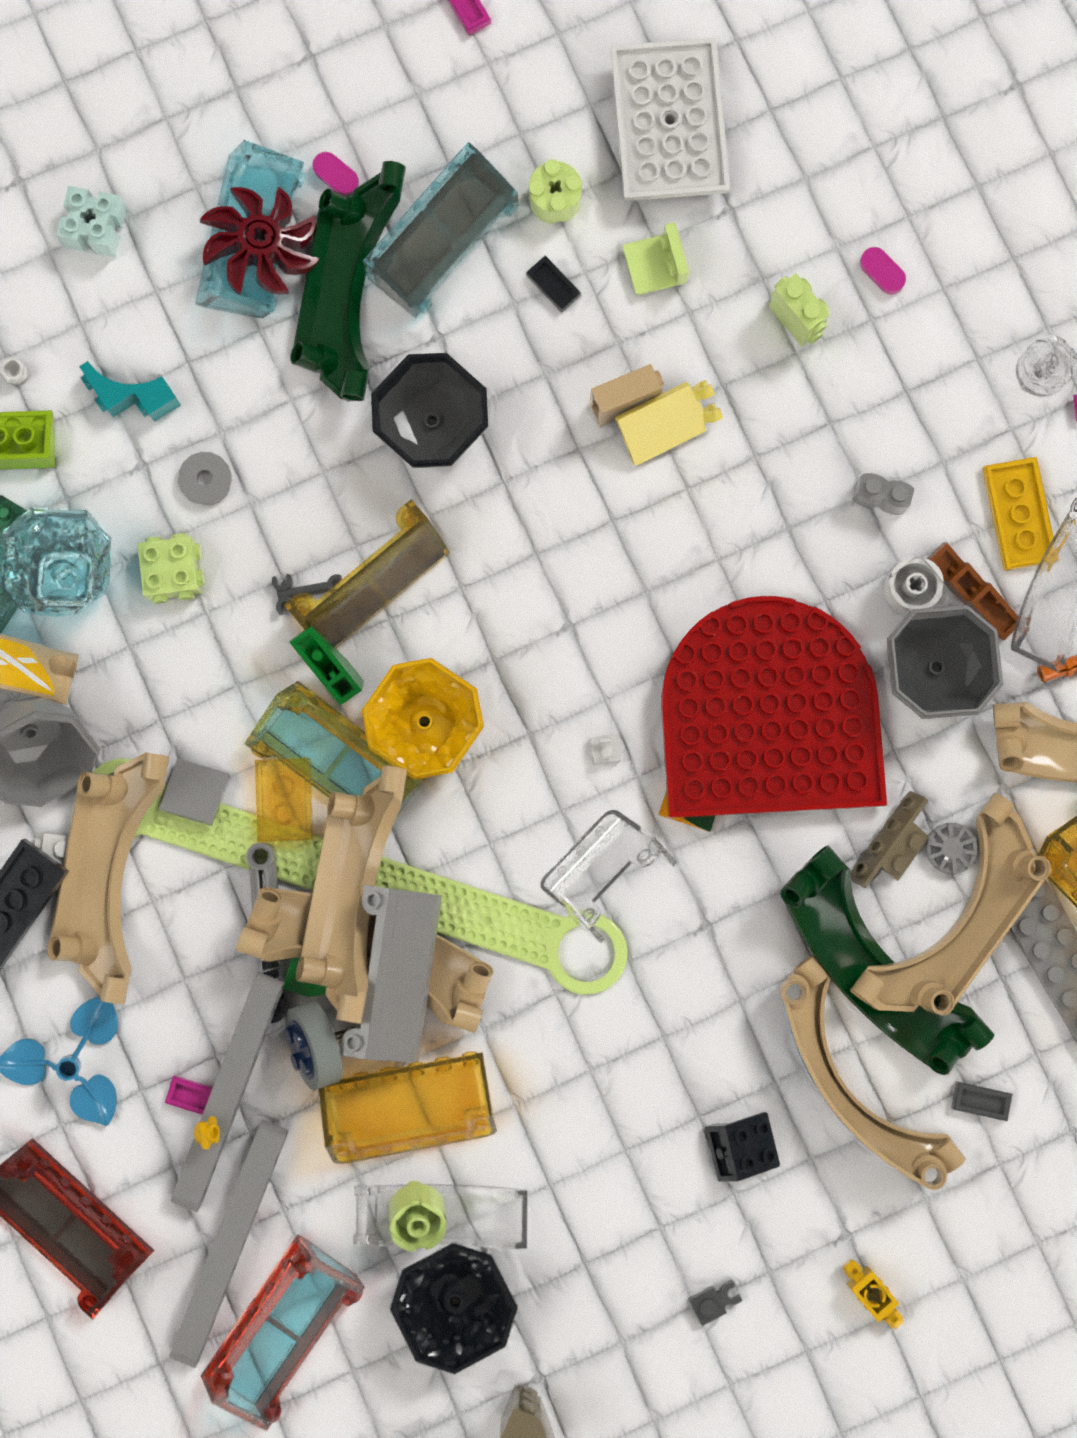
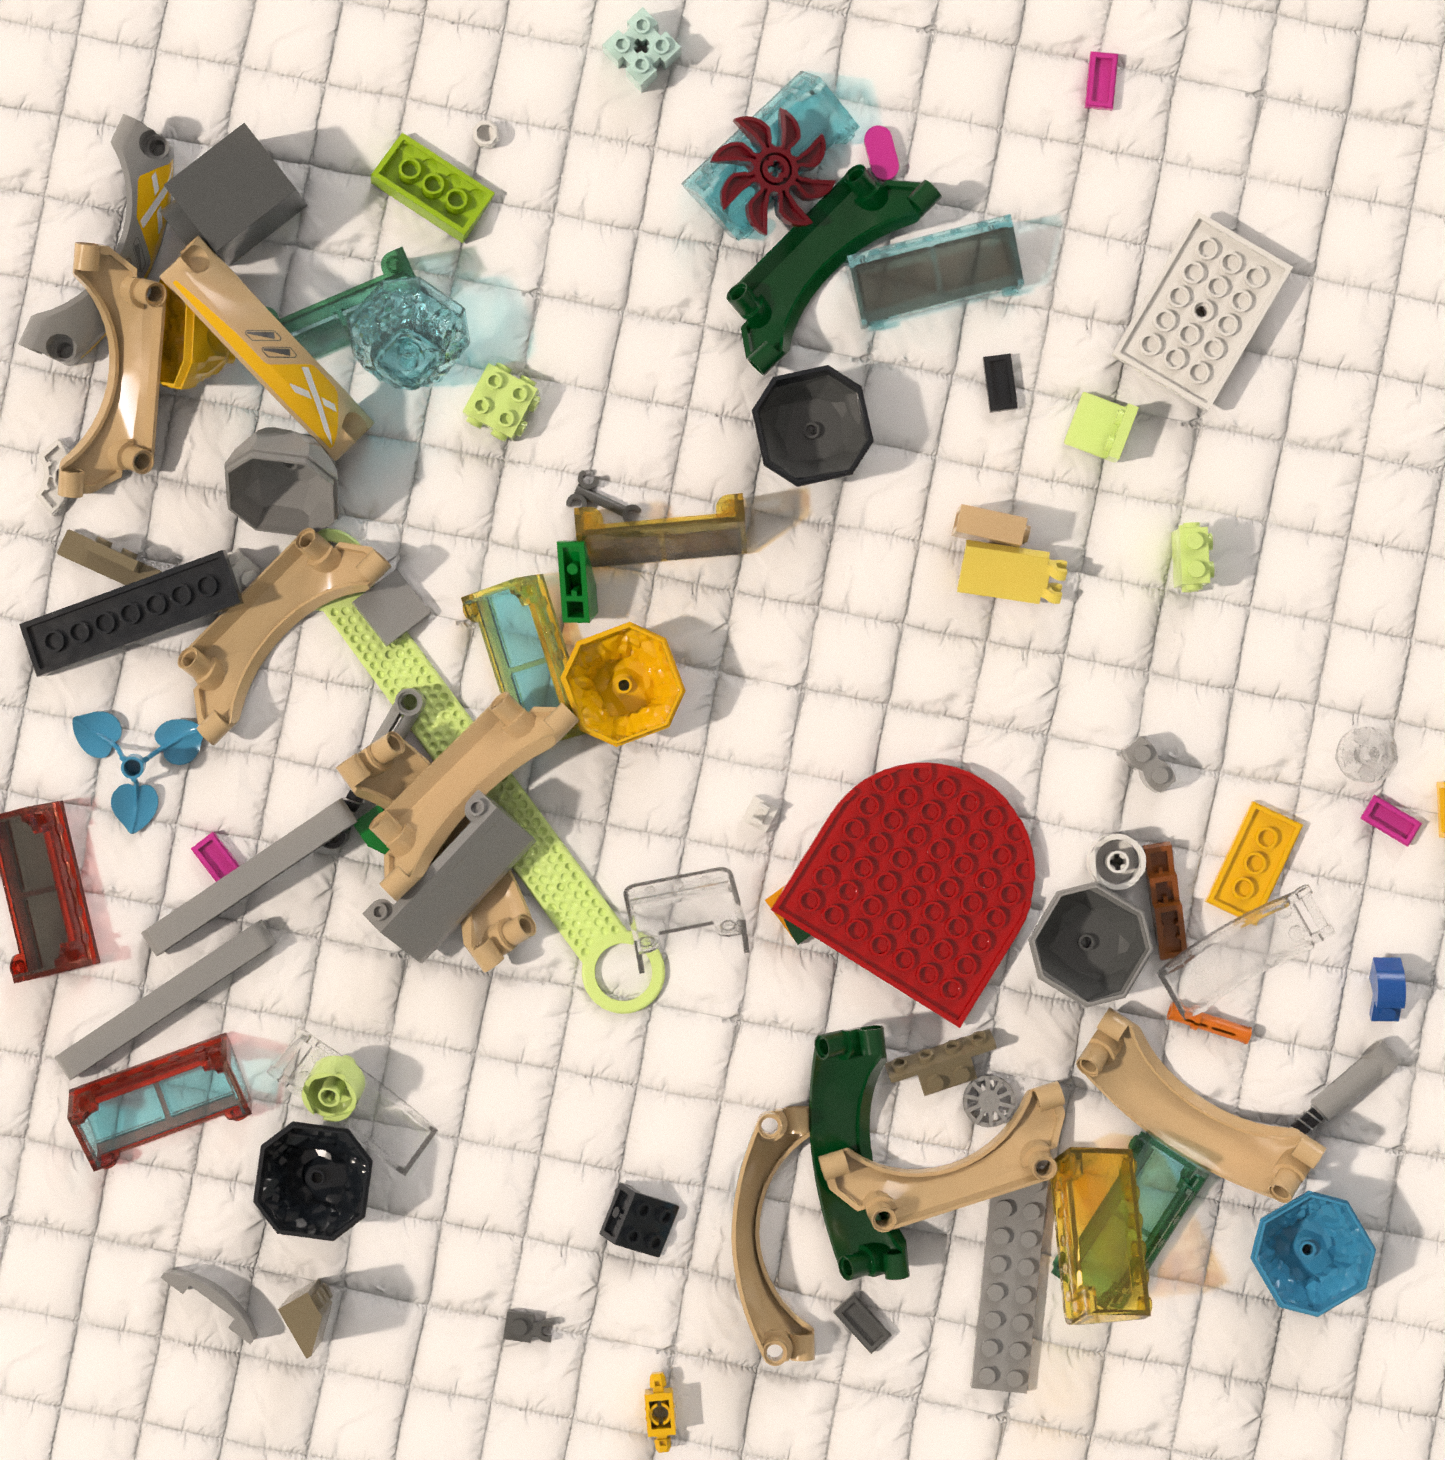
camera: 25 degrees right, 5 degrees up
(153, 396) = (589, 243): teal arch -> none
(194, 467) = (584, 327): light grey tile -> none
(207, 1132) = (210, 899): yellow plate -> none
(284, 800) = (461, 667): clear yellow tile -> none
(314, 1045) = (346, 890): light grey wheel -> none
(407, 1108) = (386, 994): clear yellow windscreen -> none
(567, 189) = (1064, 290): yellowish green brick -> none
(882, 270) = (1291, 571): dark pink tile -> none

